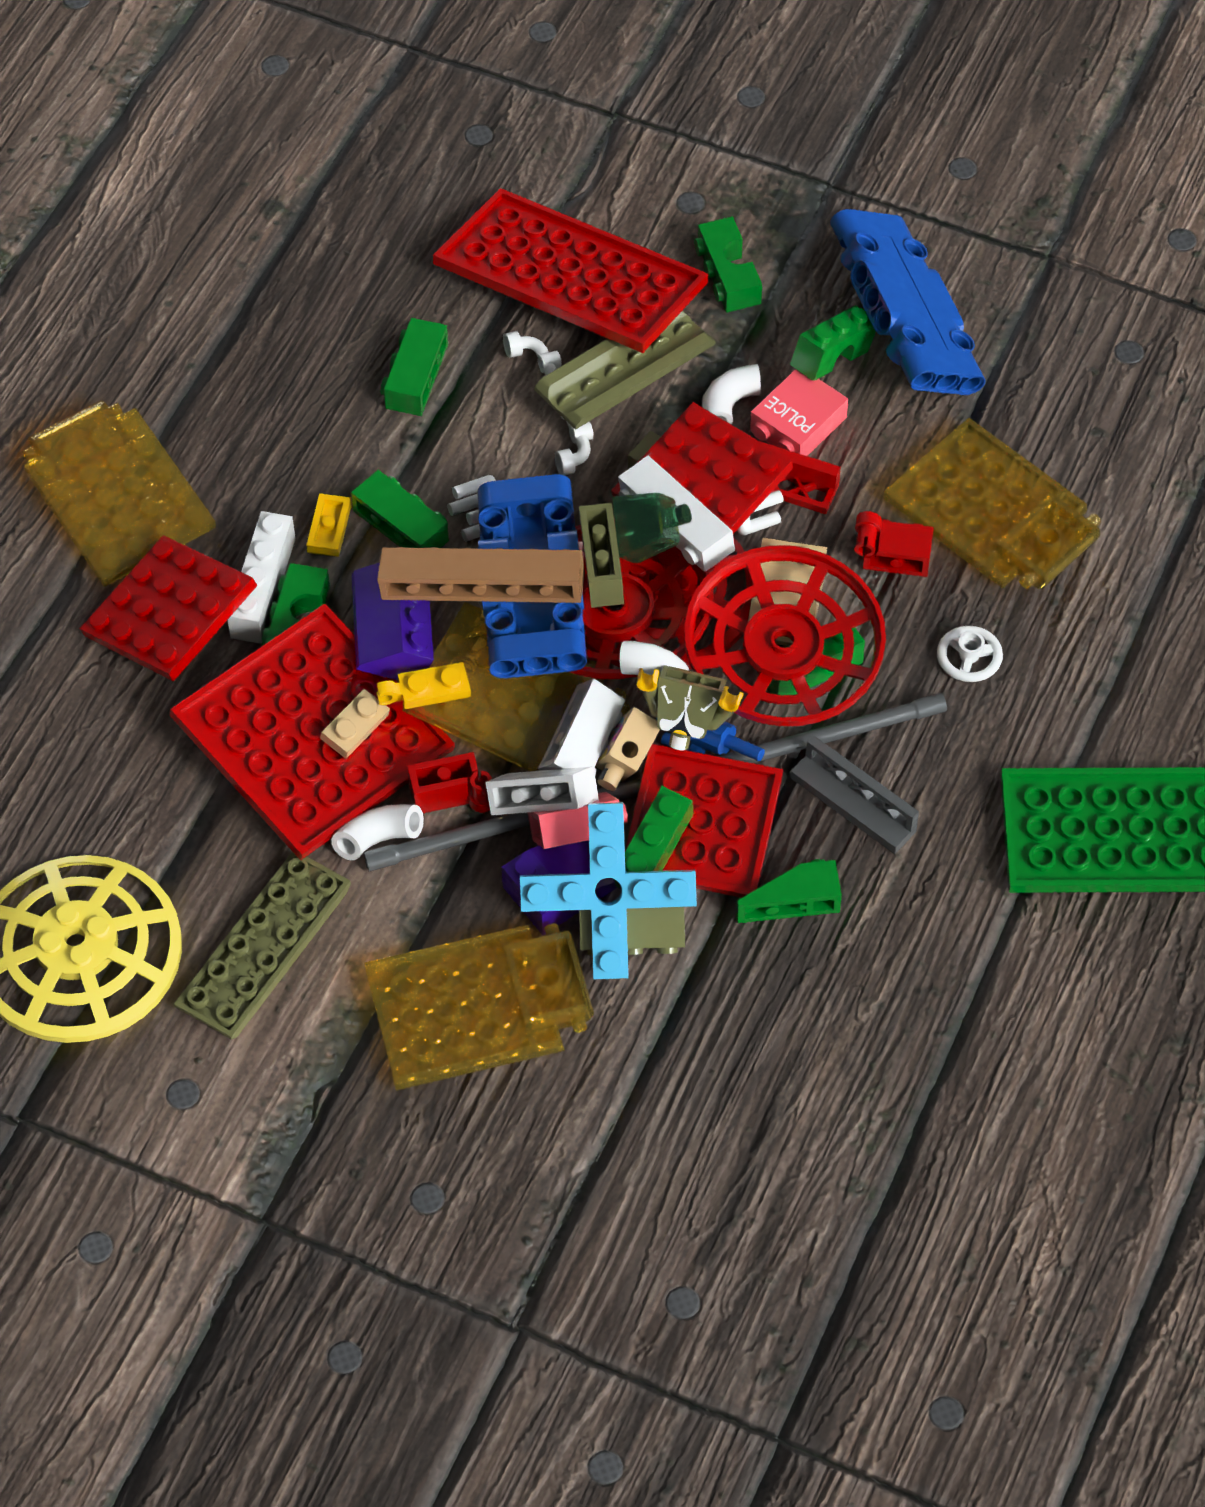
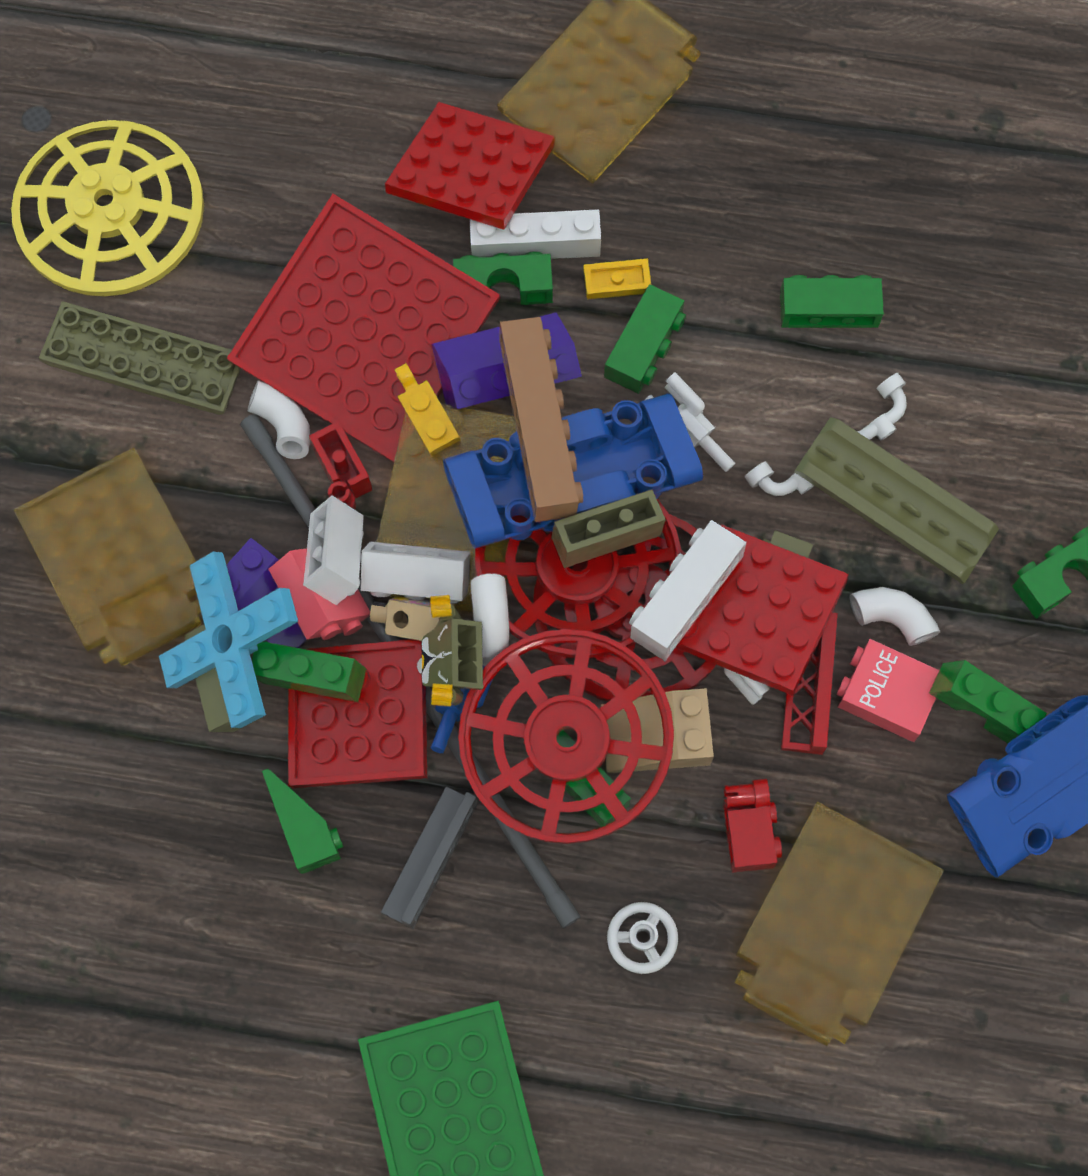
camera: 75 degrees right, 15 degrees up
(354, 723) = (373, 361): tan plate -> none
(571, 270) = (997, 415): red plate -> none
(647, 524) = (653, 560): clear green torso -> none

